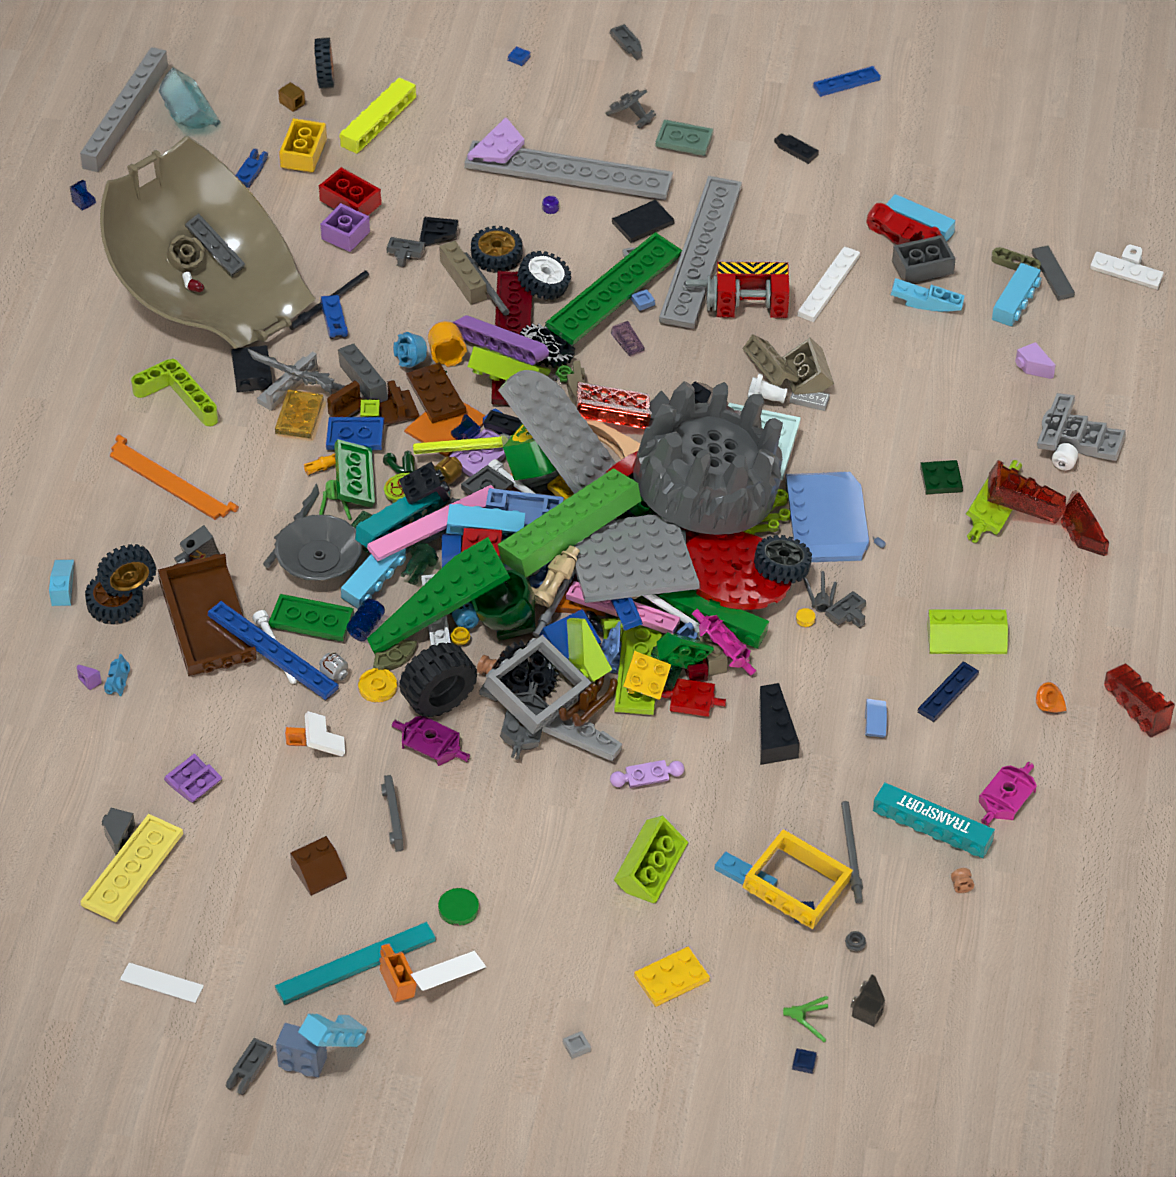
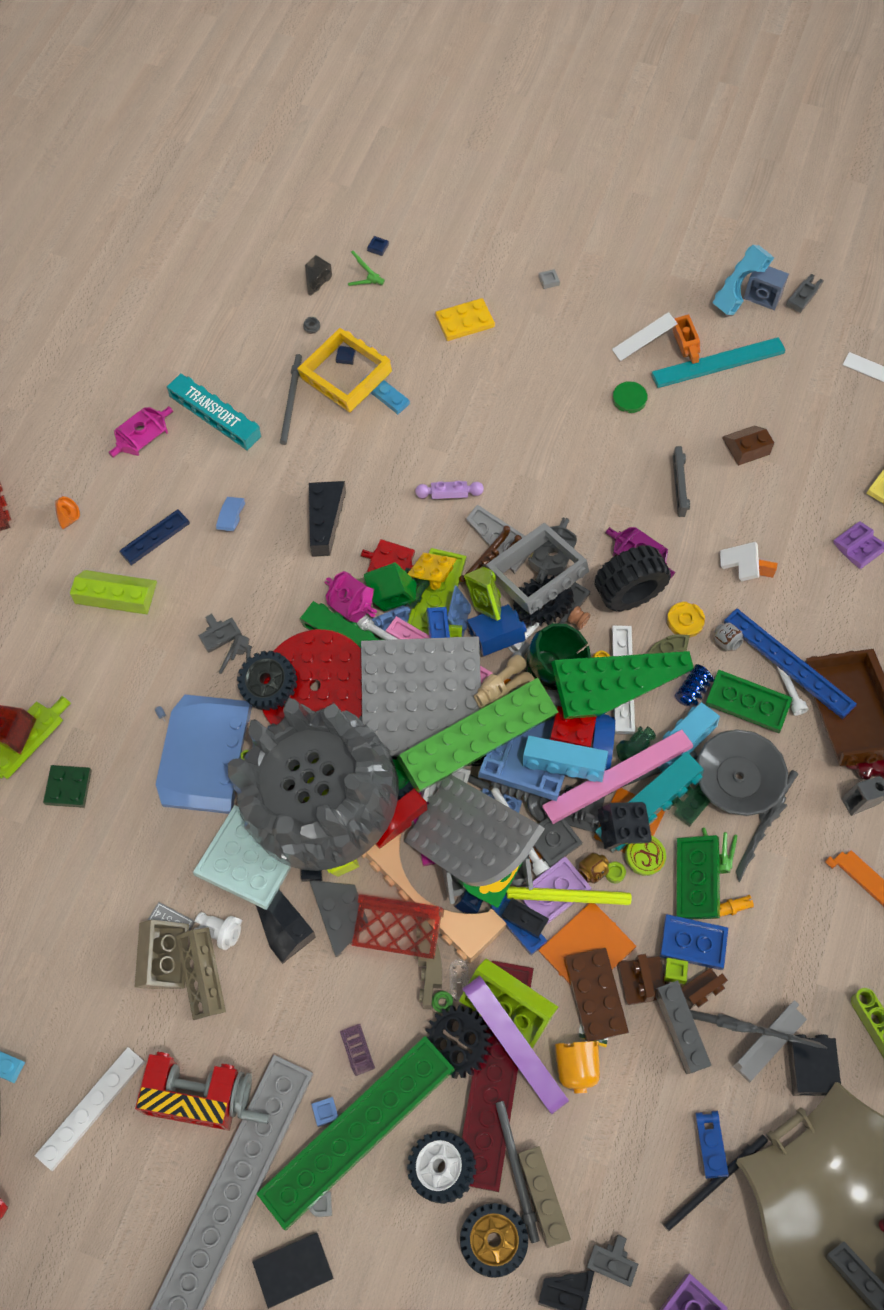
camera: 170 degrees left, 15 degrees up
(299, 414) = (757, 985): clear yellow plate -> none
(408, 462) = (636, 884): dark green plant -> none
(410, 349) = (621, 1058): dark azure cone -> none
(466, 430) = (568, 921): clear blue panel -> none
(651, 860) = (463, 409): lime slope -> none
(805, 617) = (261, 634): yellow tile -> none
(962, 880) = (208, 357): nougat wheel -> none

